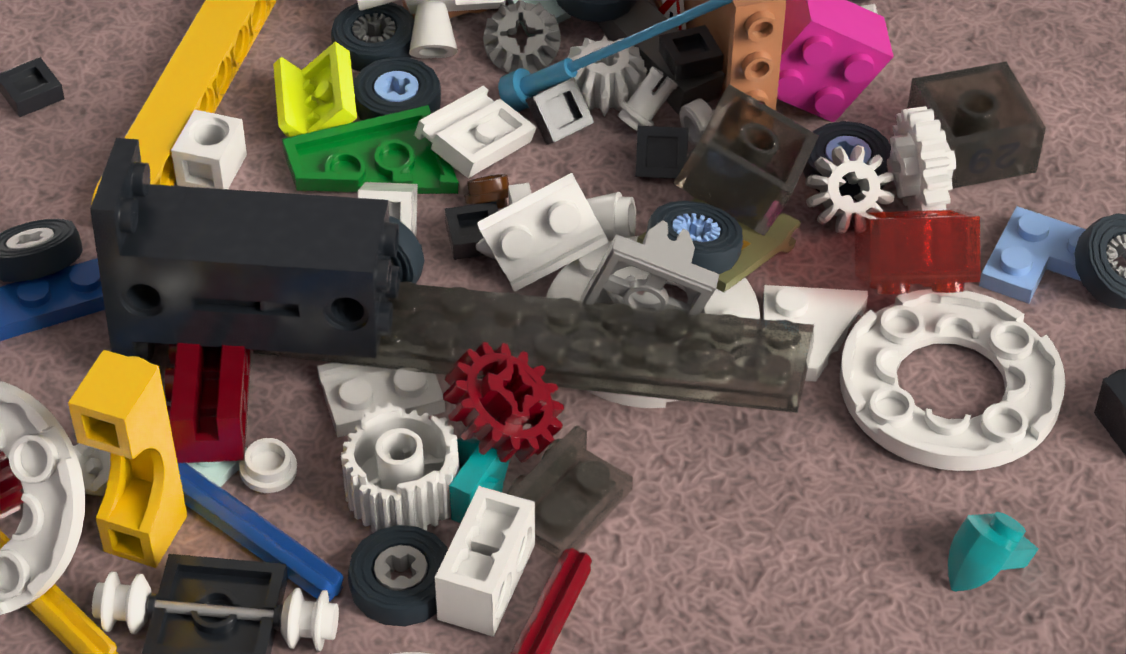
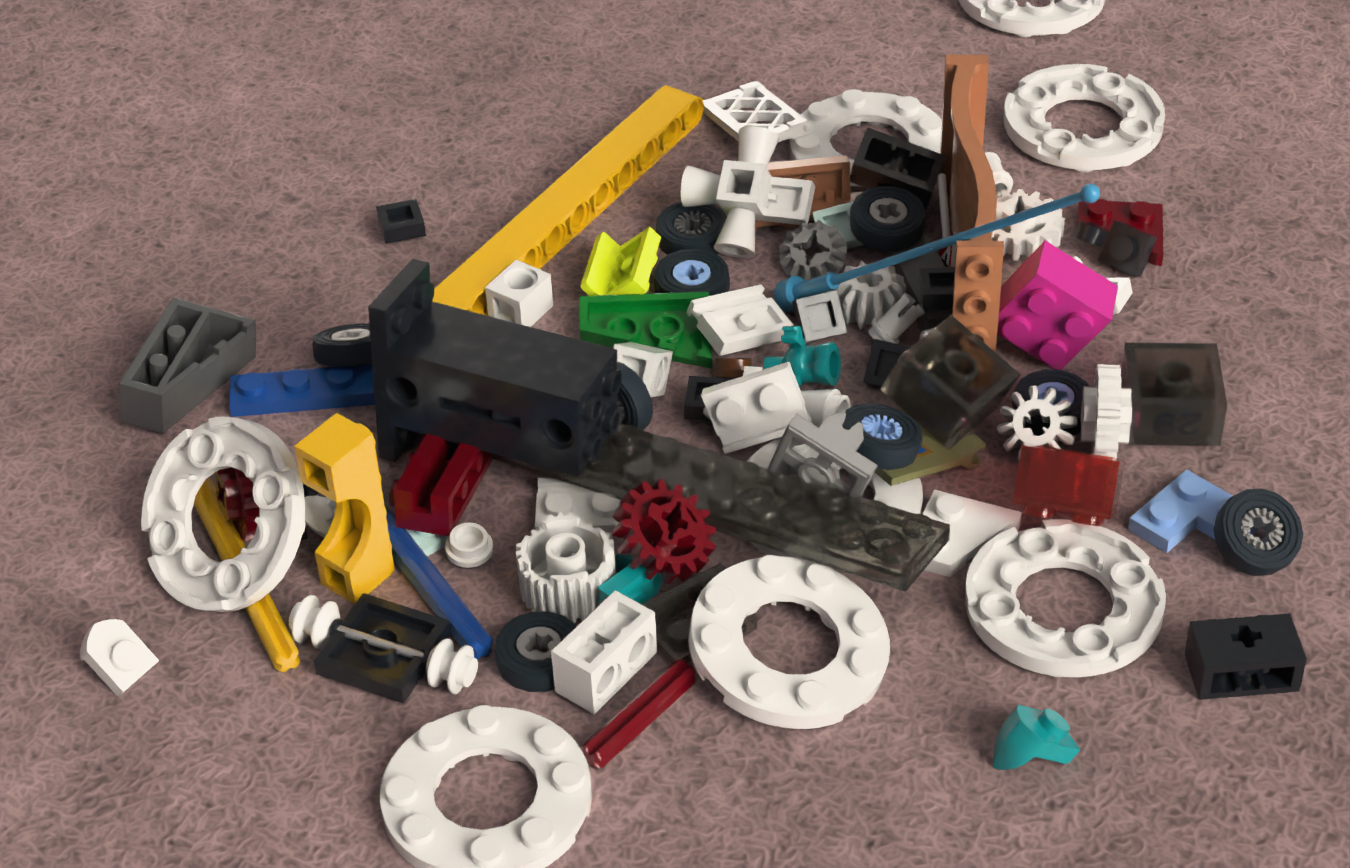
camera: 20 degrees right, 5 degrees down
(557, 161) = (809, 363): none -> teal piece
(669, 563) = (778, 697): none -> white plate

